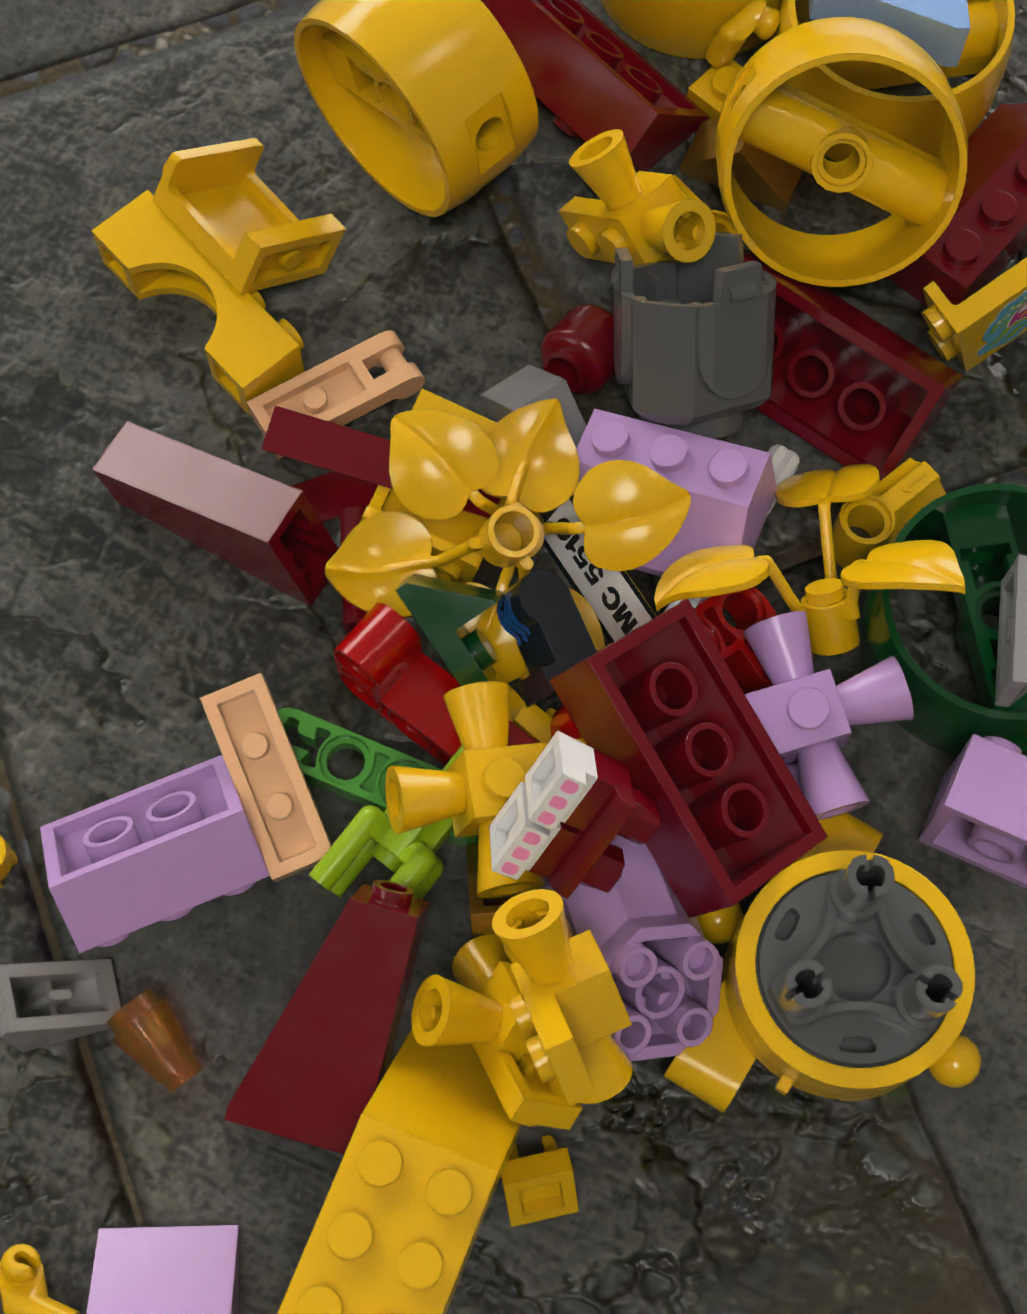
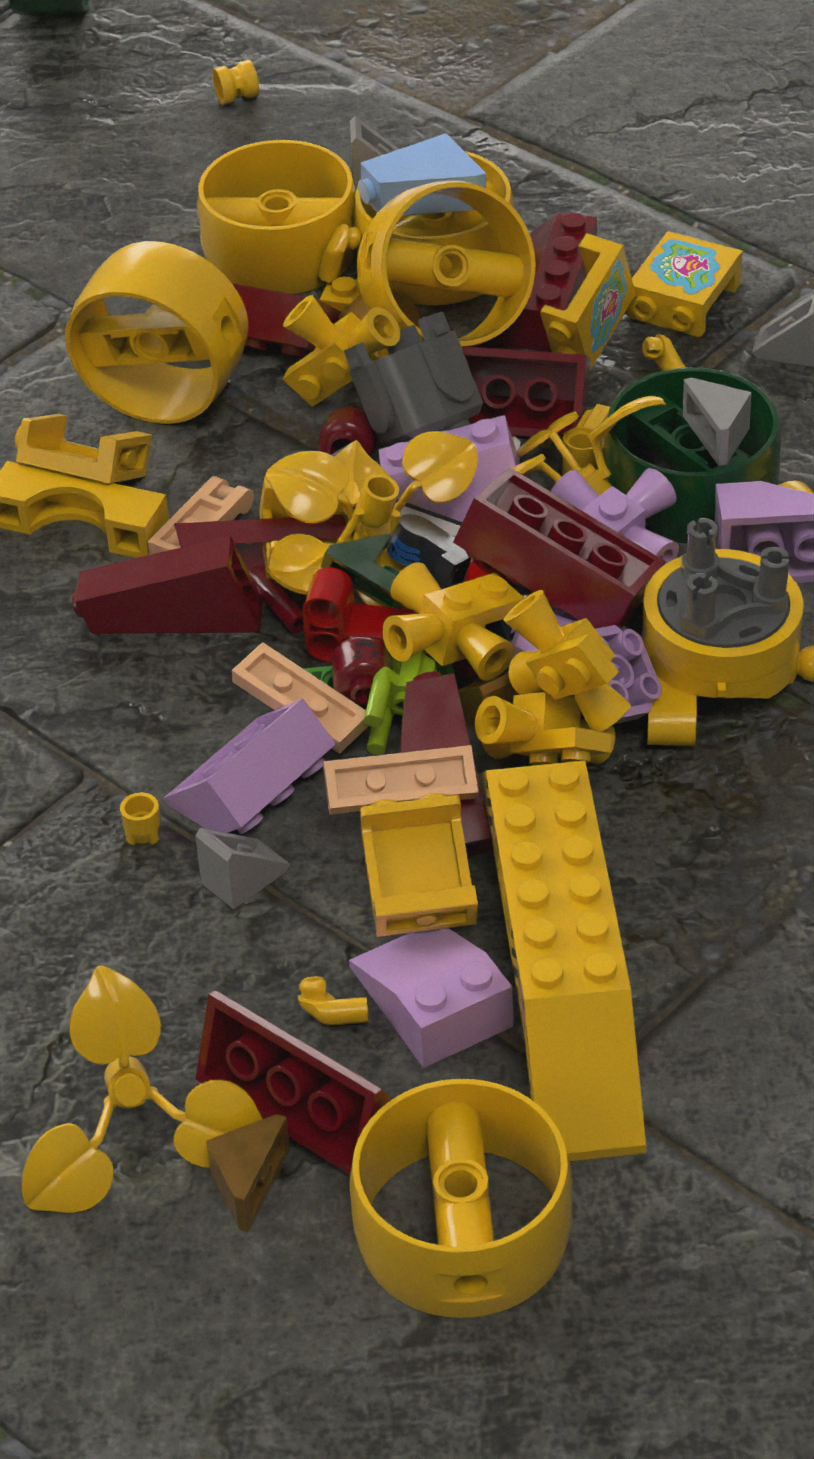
camera: 25 degrees left, 25 degrees down
(155, 1040) = (318, 854): clear orange cone -> none
(228, 1174) = (417, 865): none -> yellow panel
(266, 1041) = (399, 777): none -> light nougat plate
(352, 779) = (356, 664): none -> dark red head
(539, 1184) = (615, 814): yellow tile -> none
(569, 816) = (514, 565): hips -> none

